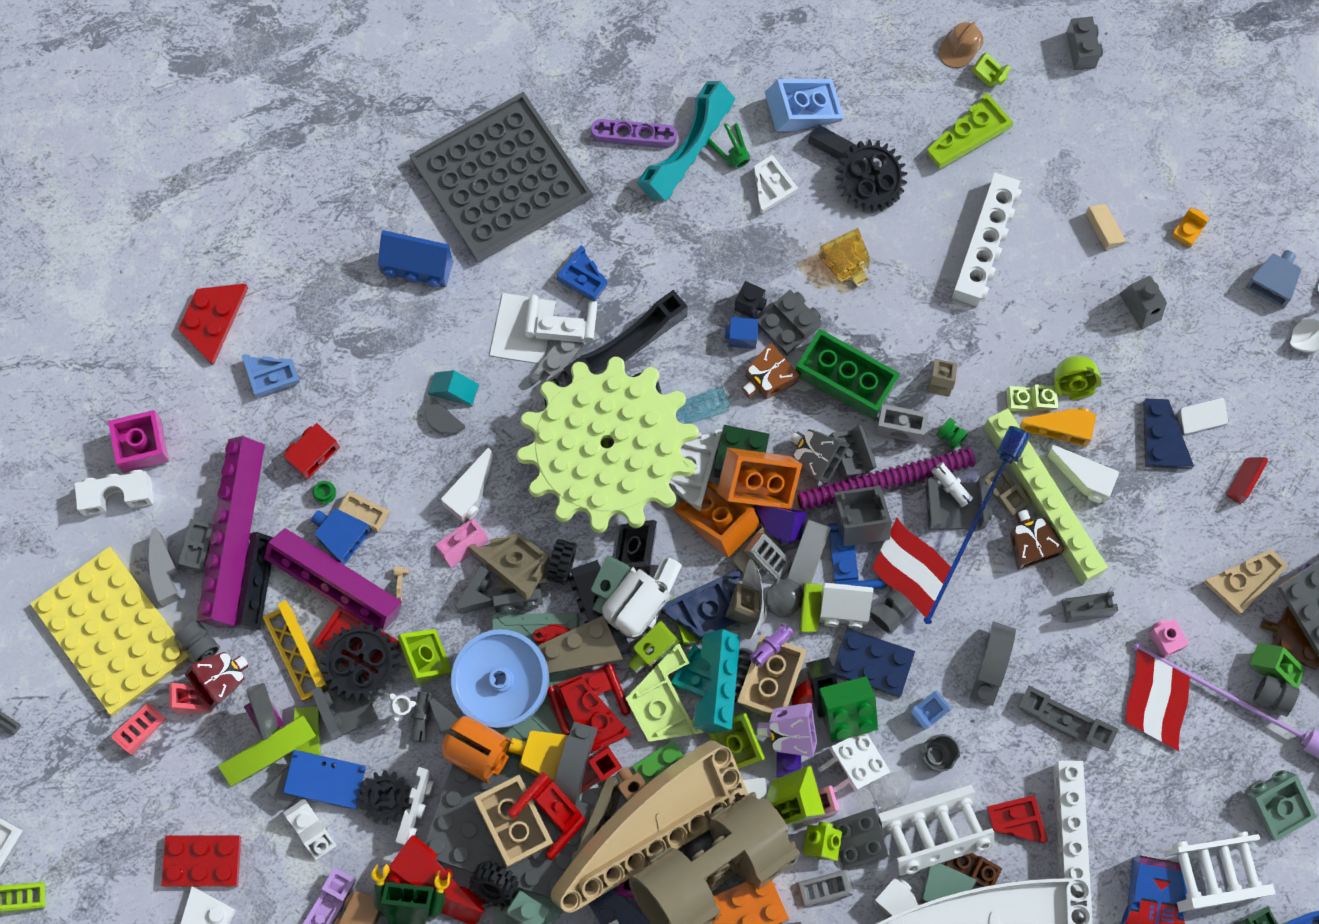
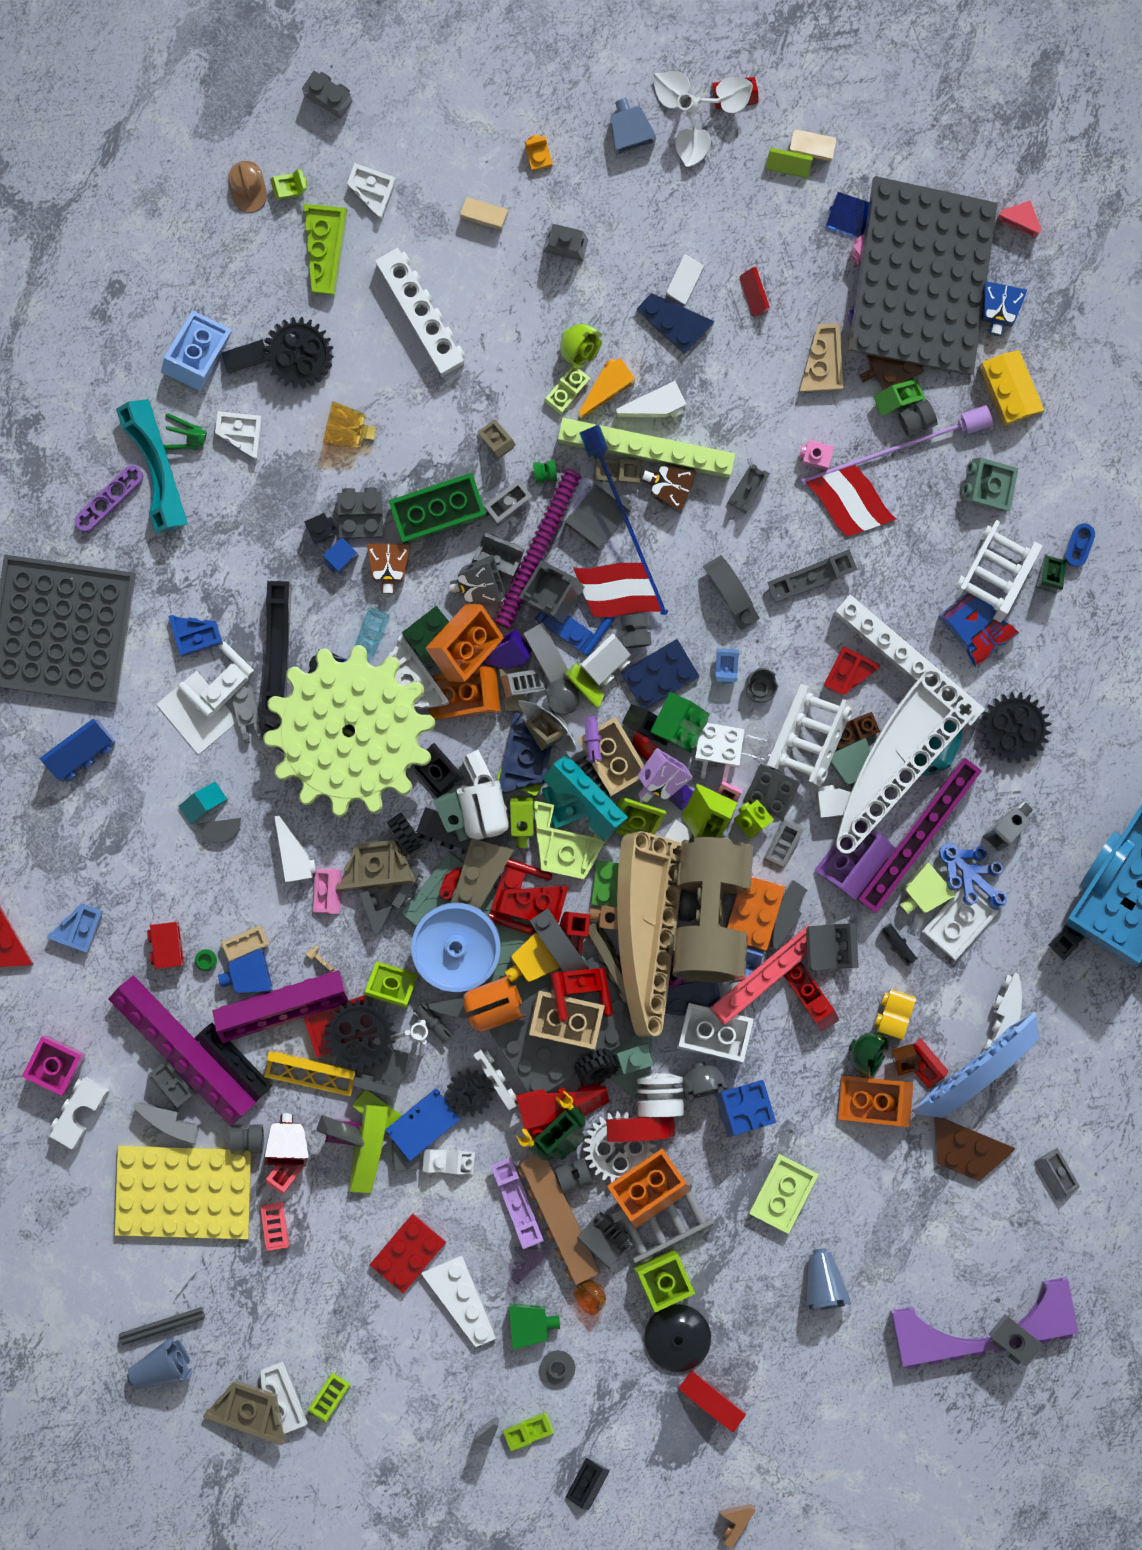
camera: 50 degrees left, 15 degrees up
(952, 484) = (582, 507): white pin -> none
(1046, 130) = (371, 187): none -> white wing

